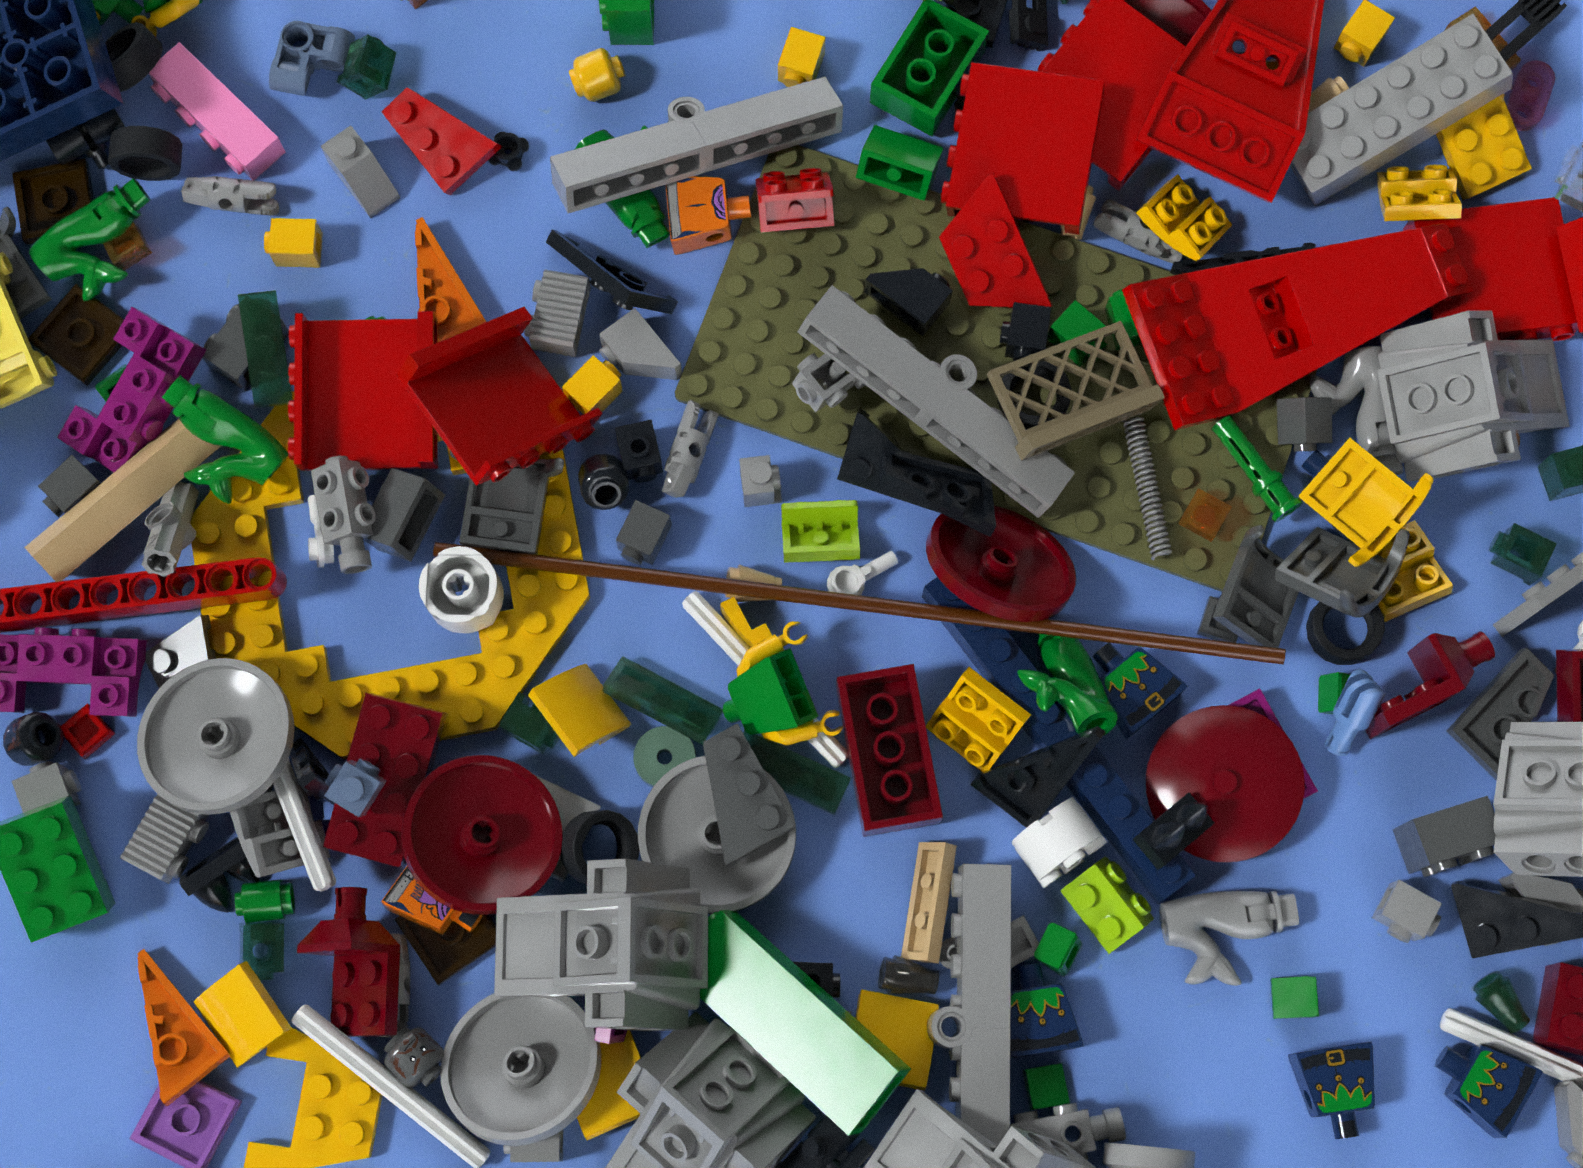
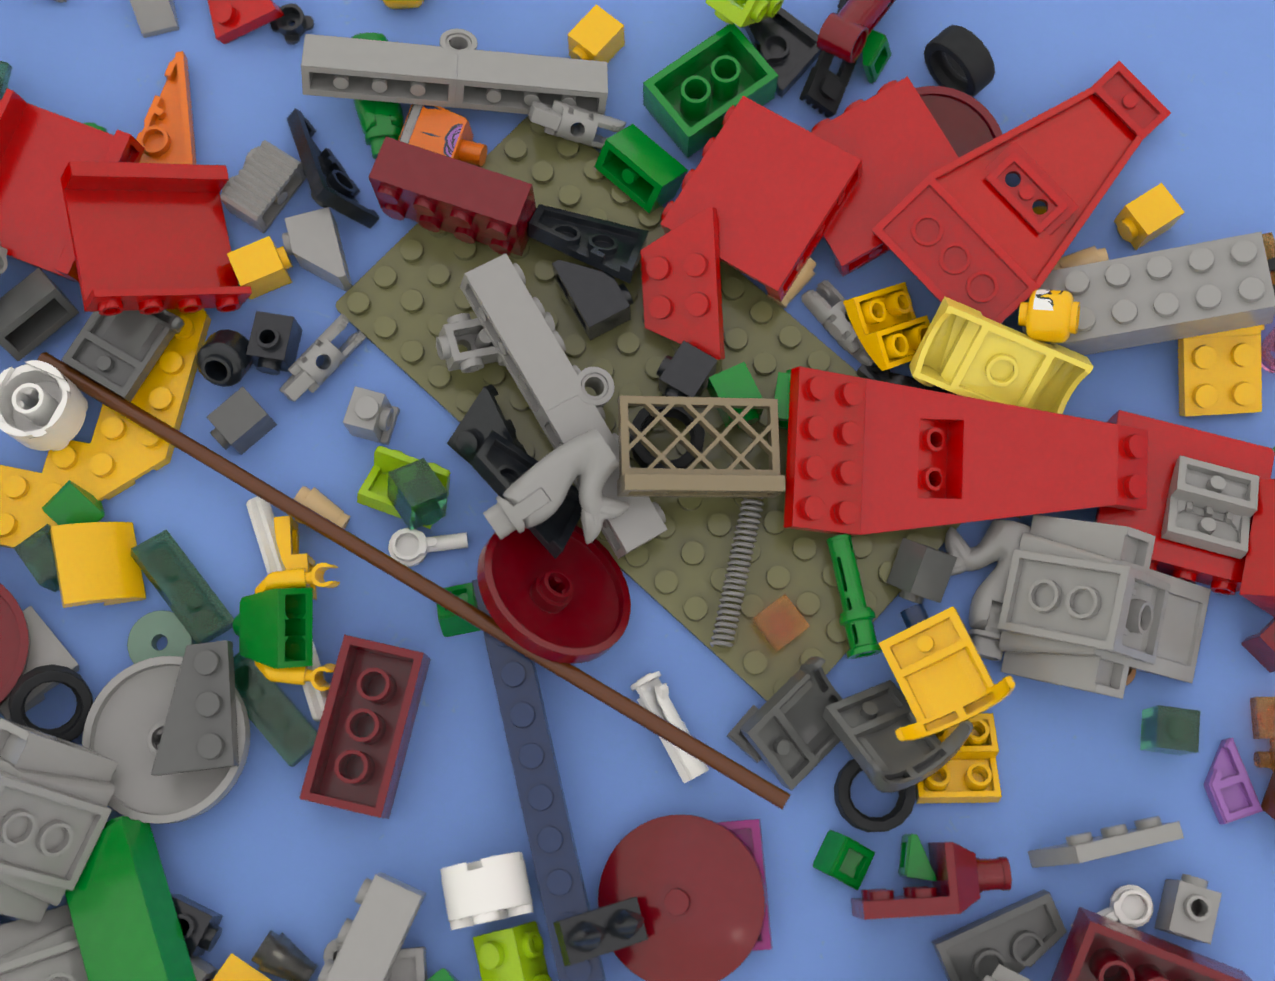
camera: 25 degrees right, 0 degrees up
(294, 242) = (61, 31): yellow brick -> none
(530, 669) = (73, 506): none -> green slope
(750, 254) = (453, 196): none -> dark red brick
(795, 200) = (527, 161): red bracket -> none
(822, 144) = (561, 116): none -> light grey hinge
(841, 531) = (417, 494): none -> clear green brick
(889, 244) = (594, 241): none -> black wing
(916, 630) = (449, 622): none -> green slope
(928, 902) = (338, 895): tan plate -> none
(961, 472) = (546, 484): none -> light grey piece
(977, 720) = (466, 734): yellow slope -> none
(1033, 781) = (494, 817): black wing -> none
(1073, 686) = (573, 751): green piece -> none
(1136, 686) = (637, 766): torso -> none
(1170, 659) = (656, 699): none -> white piece
(1290, 214) = (995, 362): none -> light yellow piece
(1324, 155) = (1050, 315): none -> yellow head
(1353, 711) = (841, 883): medium blue arm -> none
(1403, 668) = (913, 859): none -> green slope
(1418, 193) = (1135, 392): yellow slope -> none
(1524, 268) = (1210, 507): none -> light grey slope
(1533, 551) = (1100, 795): clear green brick -> none

